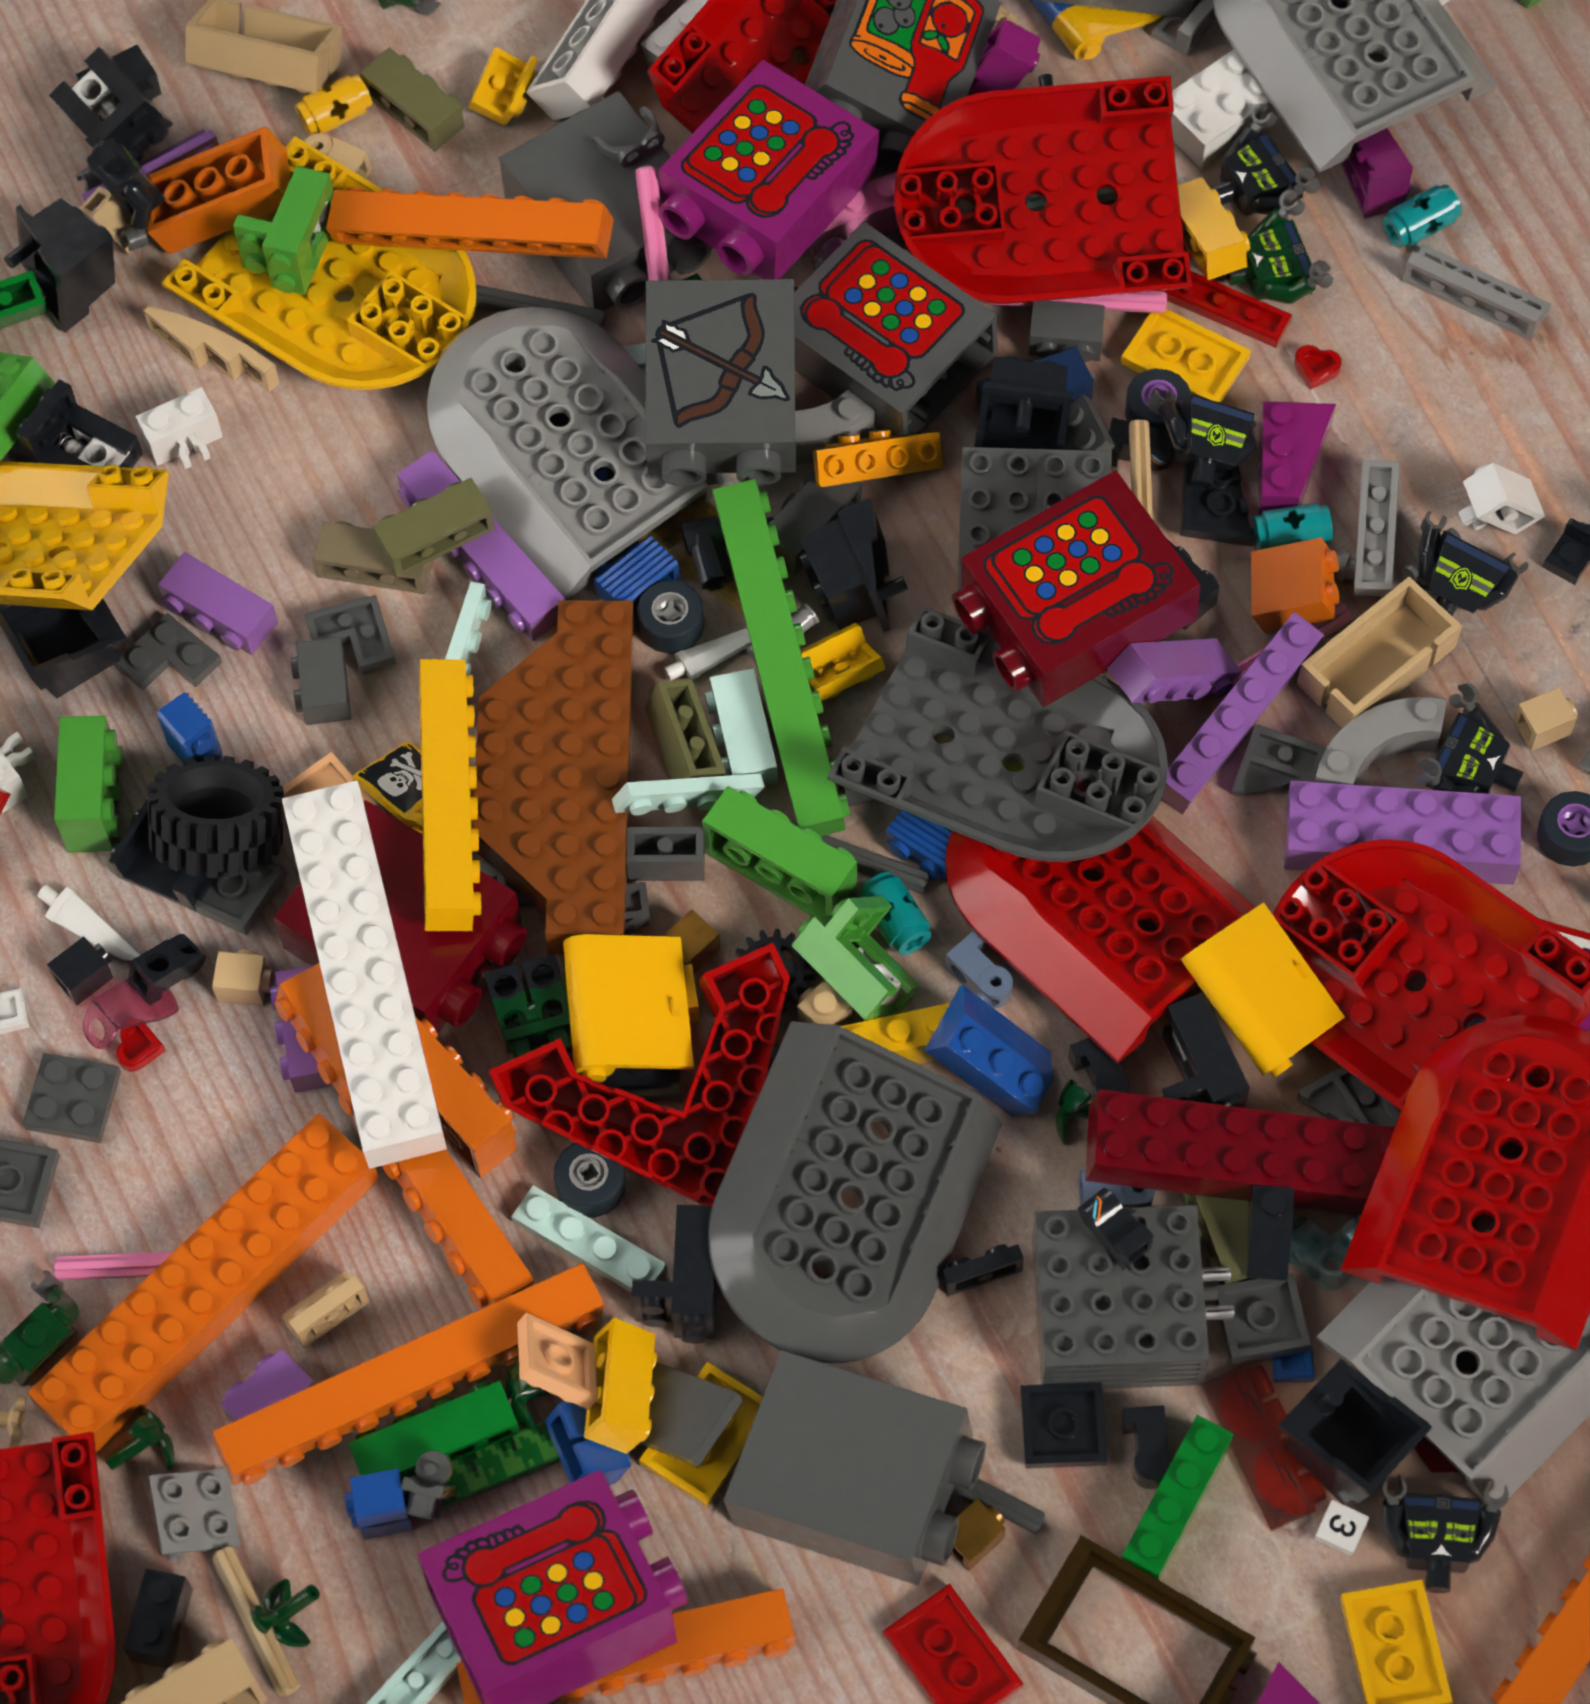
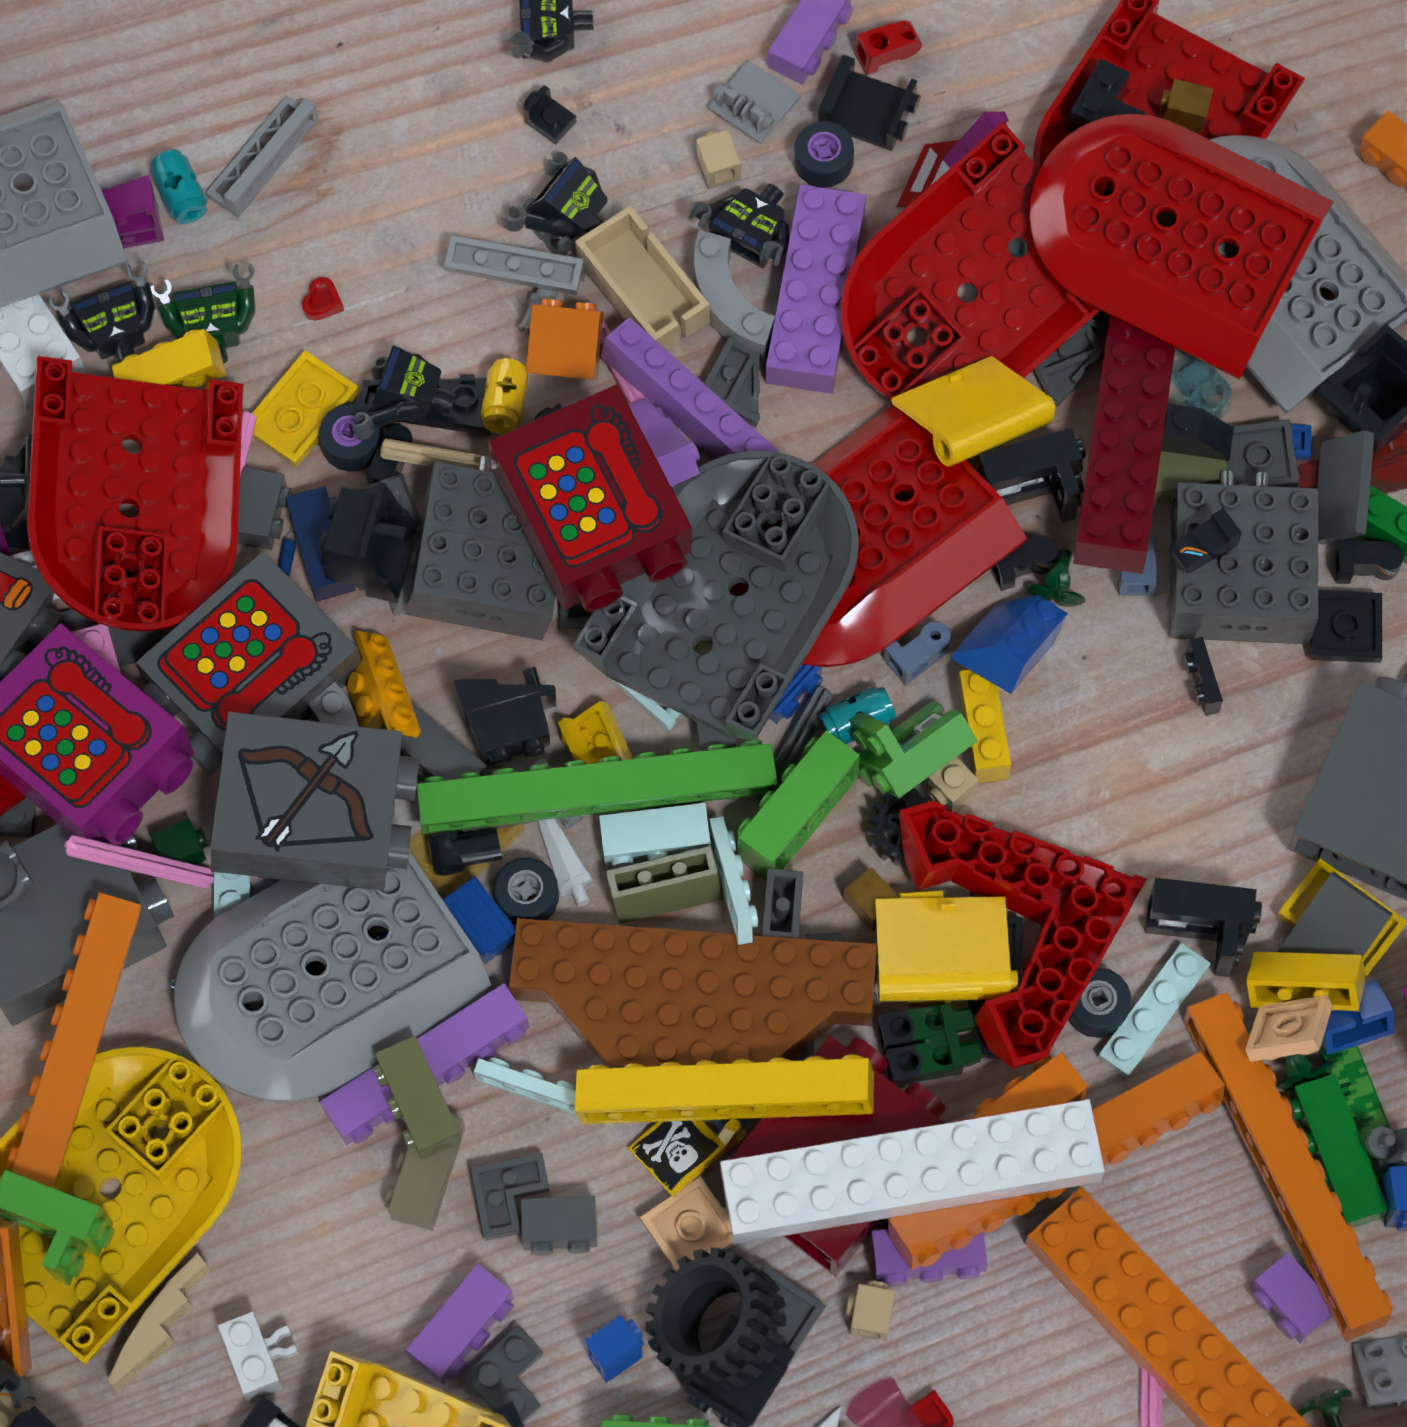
camera: 85 degrees left, 5 degrees up
(164, 967) = (857, 1383): black leg -> none
(325, 1308) = (1210, 1244): tan bracket -> none
(506, 300) = (157, 991): dark grey axle -> none
(786, 1182) = (1193, 823): dark grey piece -> none
(1219, 532) = (504, 396): none -> yellow piece
(1226, 1402) = (1344, 486): none -> dark grey tile
(1232, 309) = (258, 353): red tile -> none
(1289, 449) = (424, 329): magenta wedge -> none
(1307, 523) = (495, 321): teal piece -> none
(1500, 499) = (498, 160): white brick -> none

